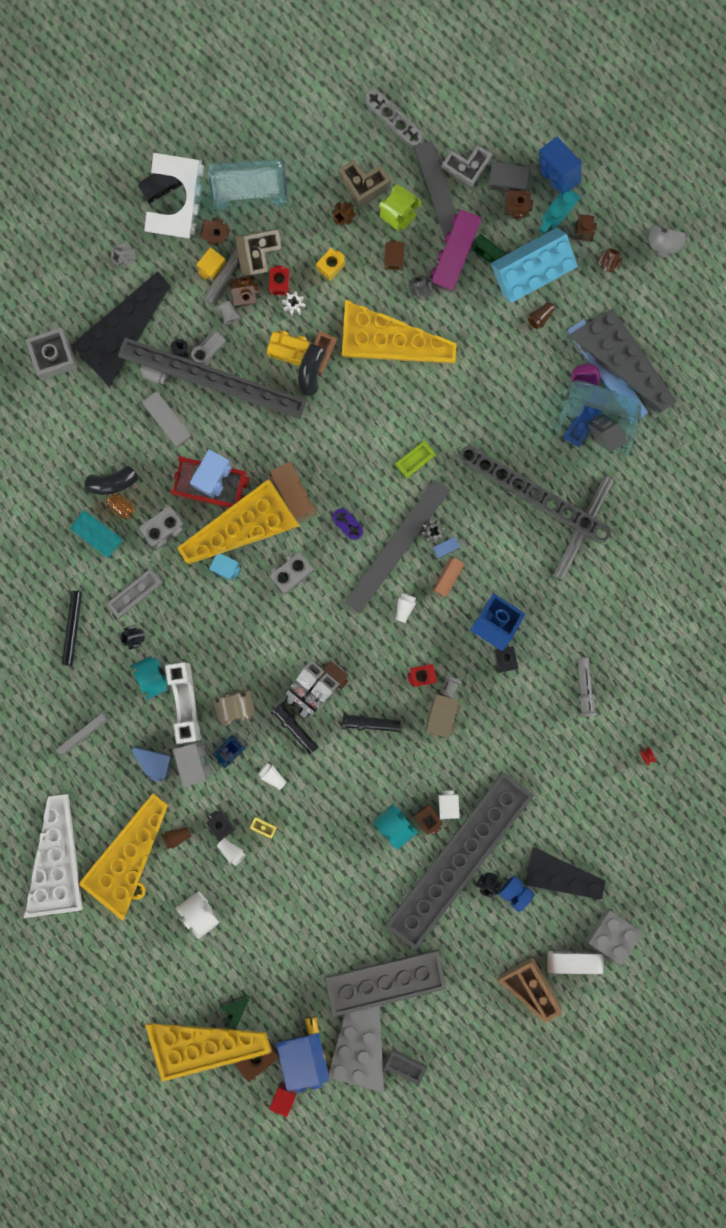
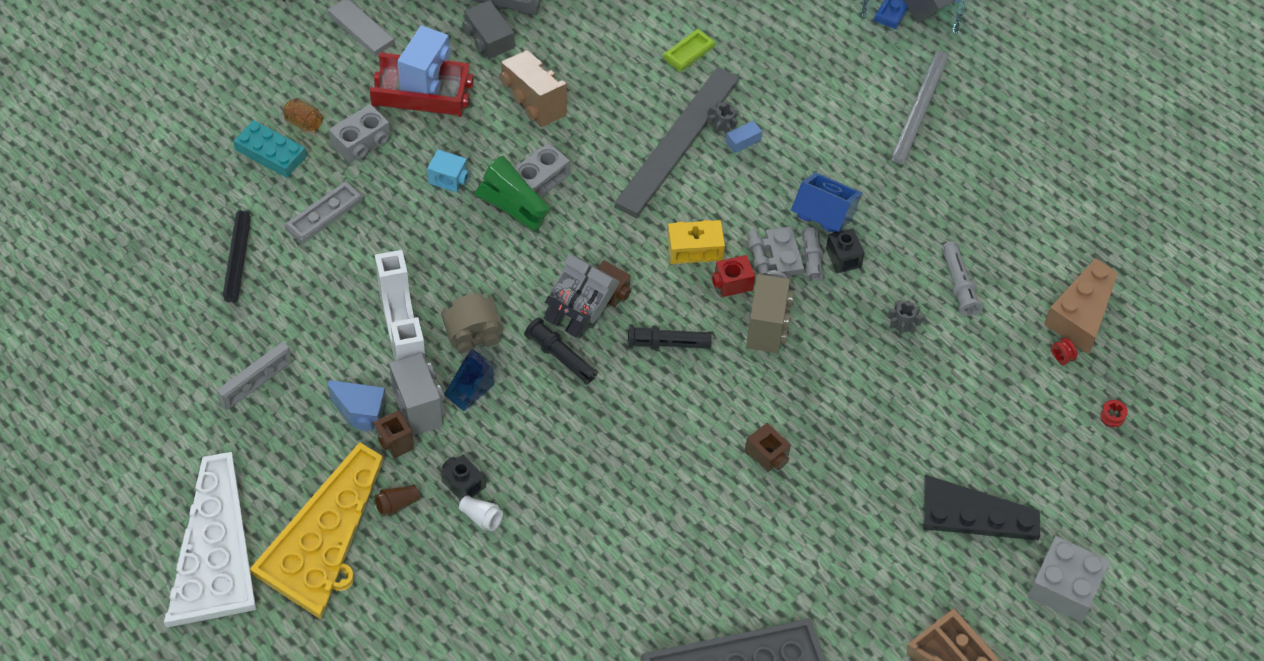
camera: 10 degrees left, 30 degrees down
(111, 483) = (289, 87): black cylinder -> none
(132, 637) = (323, 255): black gear -> none
(149, 677) = (350, 296): teal brick -> none
(175, 793) = (394, 434): none -> reddish brown brick
(198, 914) = (438, 590): white brick -> none
(248, 521) = (479, 105): yellow wing -> none
(263, 432) = (488, 30): none -> dark grey brick
(263, 827) = (526, 478): light yellow piece -> none
(266, 590) = (510, 193): none -> green piece
(271, 776) = (531, 410): white cone -> none
(351, 521) = (609, 120): dark purple beam -> none
(395, 826) = (721, 453): teal brick -> none
(405, 606) = (698, 200): white cone -> none
(408, 648) = (695, 241): none -> yellow brick
(448, 577) = (751, 165): nougat brick -> none
(448, 805) = (795, 428): white brick -> none
(459, 860) = (818, 504): dark grey plate -> none
(462, 653) = (782, 249): none -> light grey plate
(482, 659) = (812, 254): none -> light grey pin
(489, 884) = (876, 520): black gear -> none
(516, 894) = (904, 527): blue wheel -> none
(534, 717) = (904, 317): none -> dark grey gear
(540, 502) = (852, 69): dark grey beam -> none
(575, 963) = (1019, 620): white beam -> none
(667, 804) = (1114, 405): none -> red bush
(670, 721) = (1083, 305): none -> medium nougat wedge

